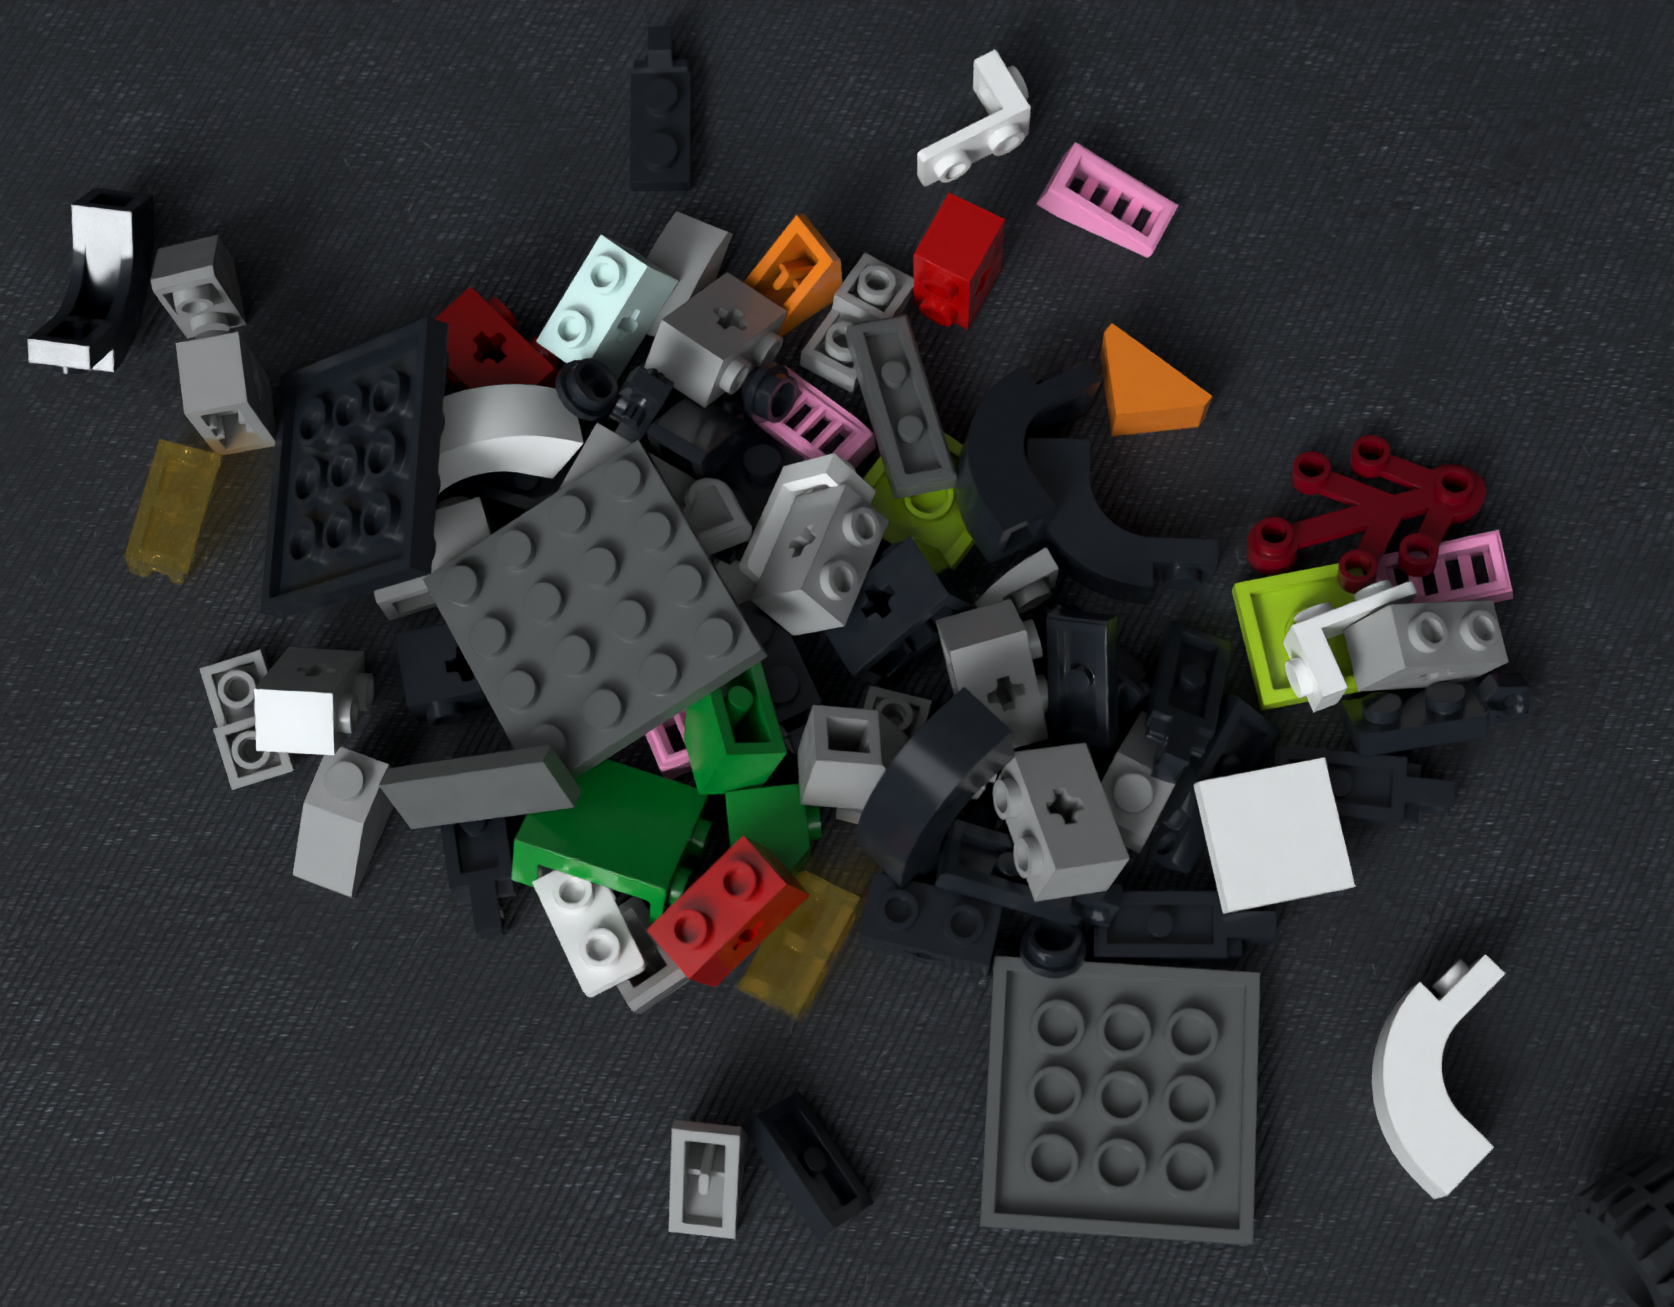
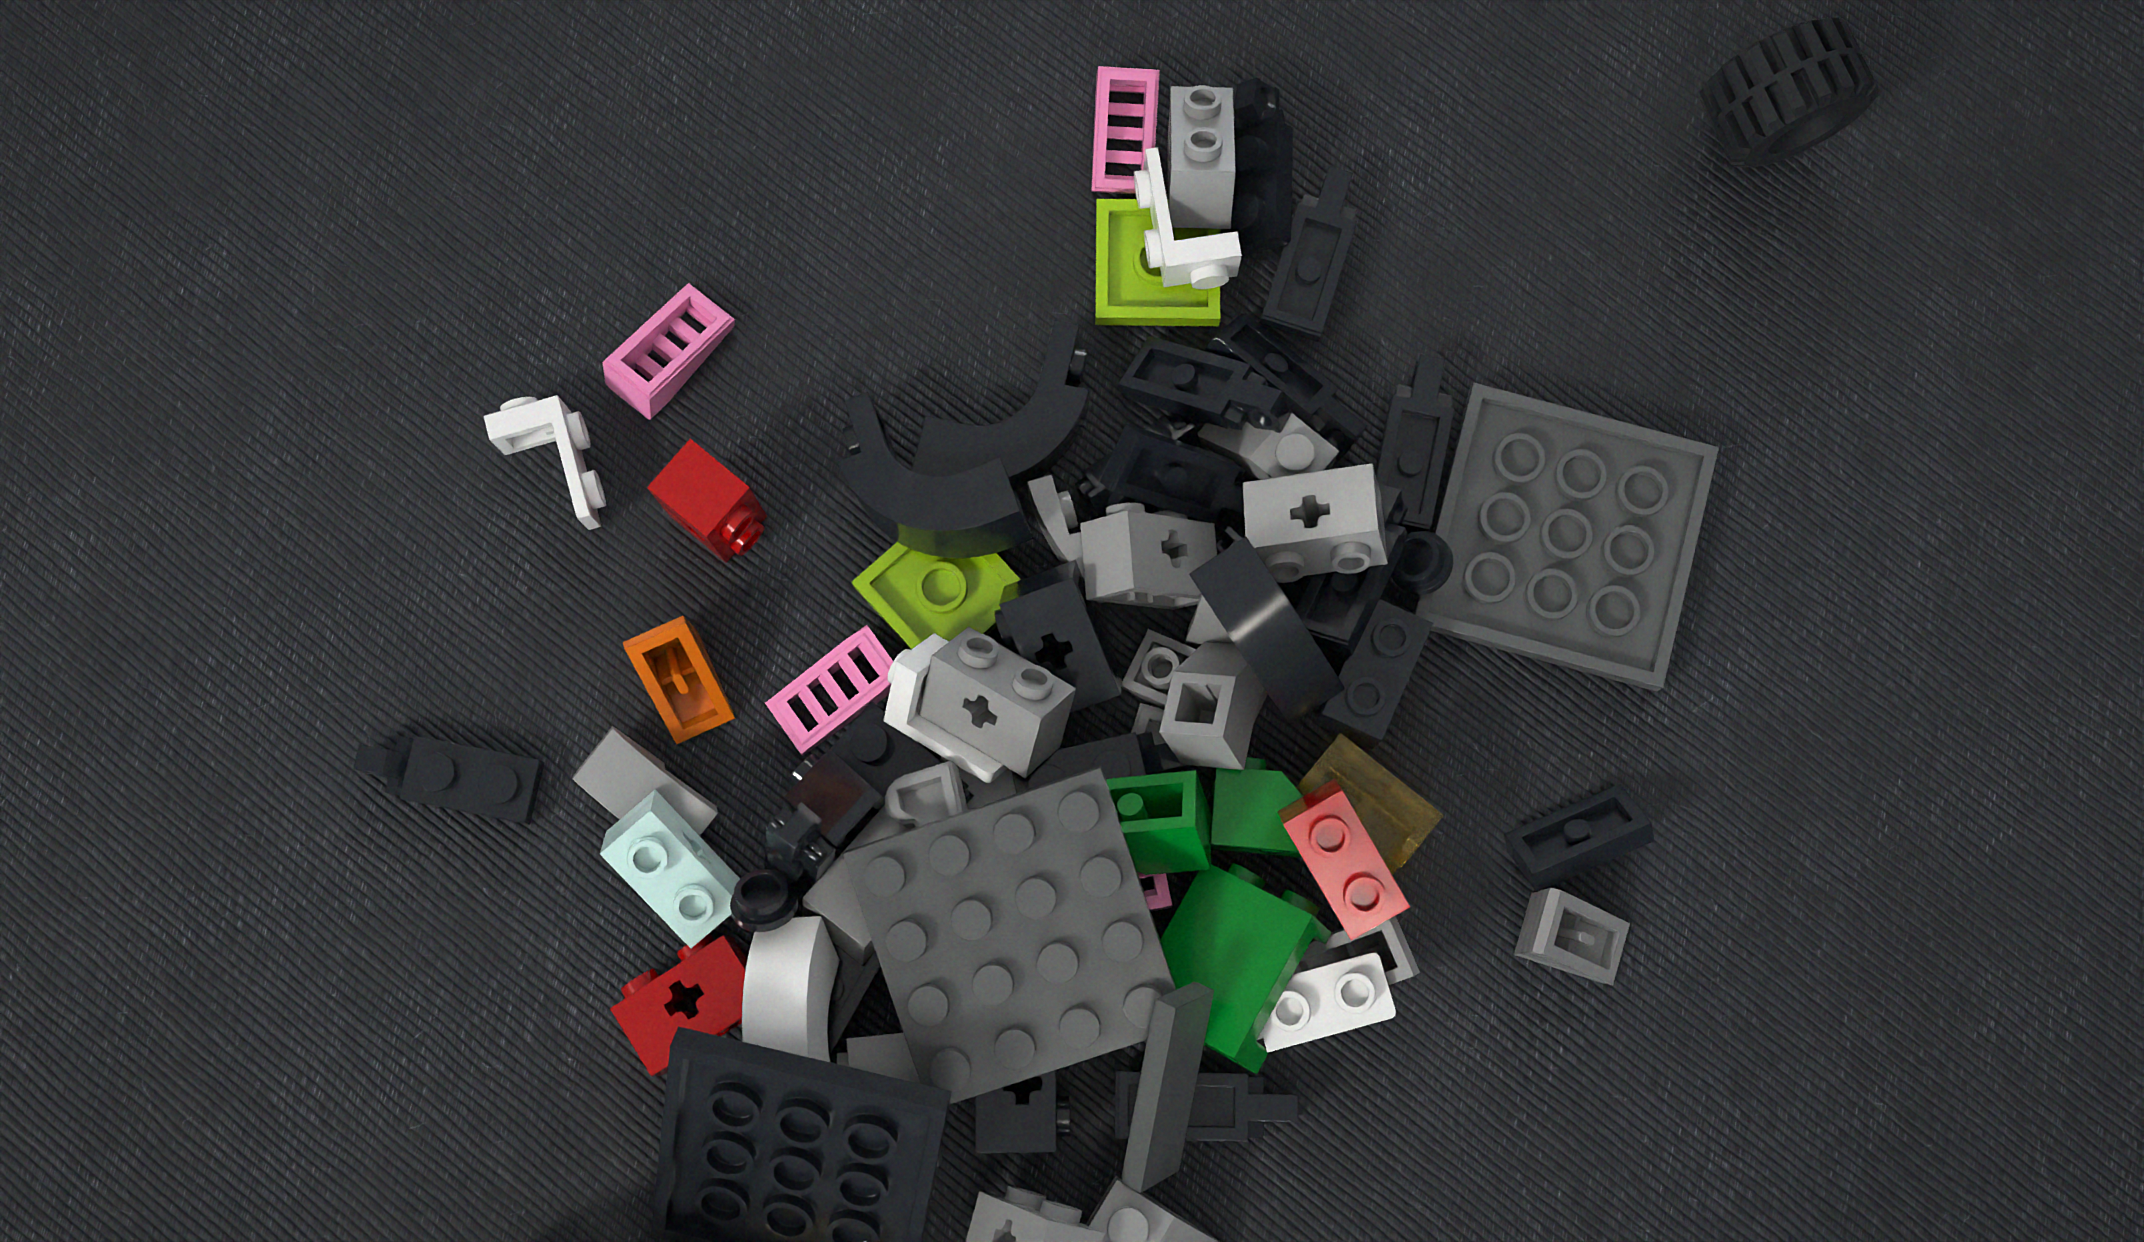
camera: 85 degrees left, 5 degrees up
(717, 339) = (732, 762): light grey brick -> none
(769, 393) = (801, 720): black plate -> none
(867, 294) = (736, 620): light grey slope -> none
(900, 406) = (845, 592): dark grey tile -> none
(1145, 390) = (876, 357): orange slope -> none
(1274, 835) = (1353, 337): white tile -> none
(1370, 511) = (1050, 175): dark red plant -> none
(1408, 1084) = (1587, 273): white arch -> none

